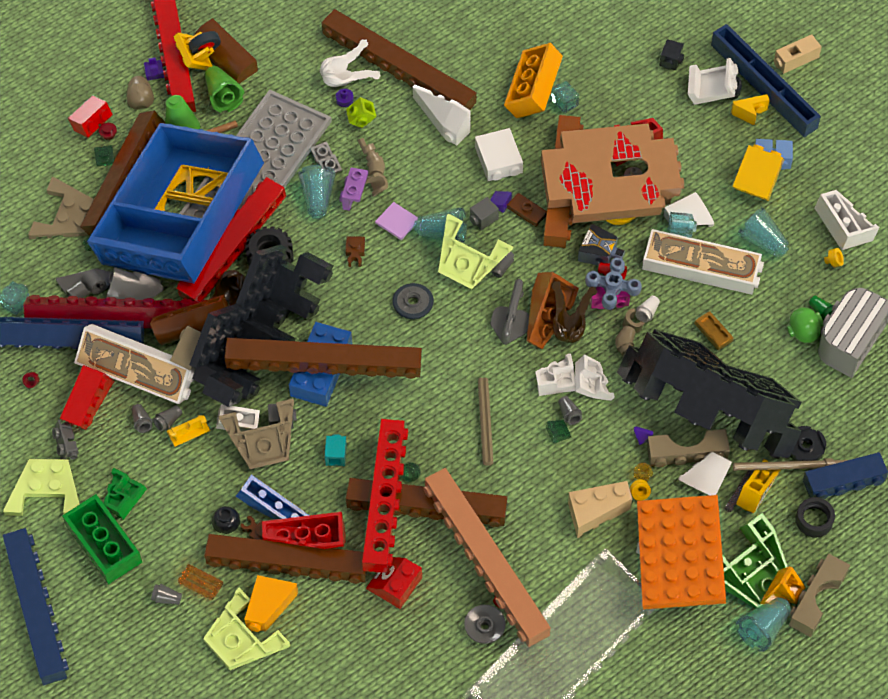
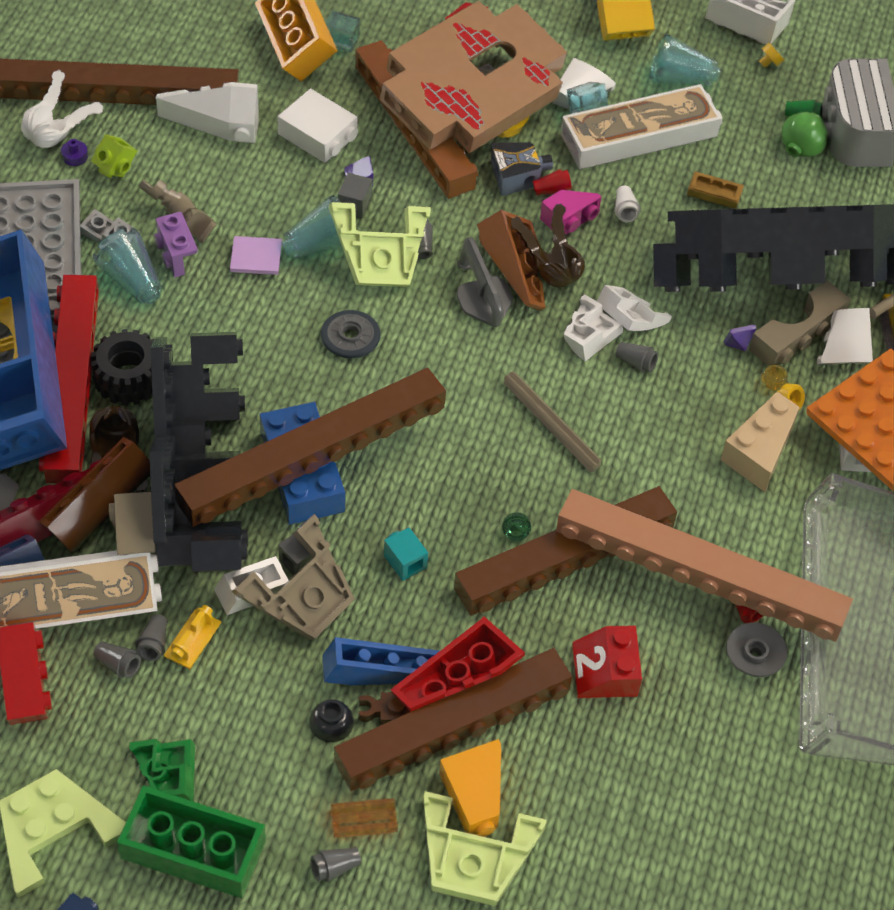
camera: 40 degrees left, 5 degrees down
(63, 433) = (22, 743): dark grey hinge -> none
(355, 249) = (230, 311): reddish brown plate -> none
(373, 560) = (570, 650): red brick -> none
(527, 209) = (398, 169): reddish brown plate -> none
(557, 430) = (641, 387): clear green slope -> none
(613, 283) = (577, 189): sand blue gear -> none
(627, 333) = (629, 244): dark tan piece -> none

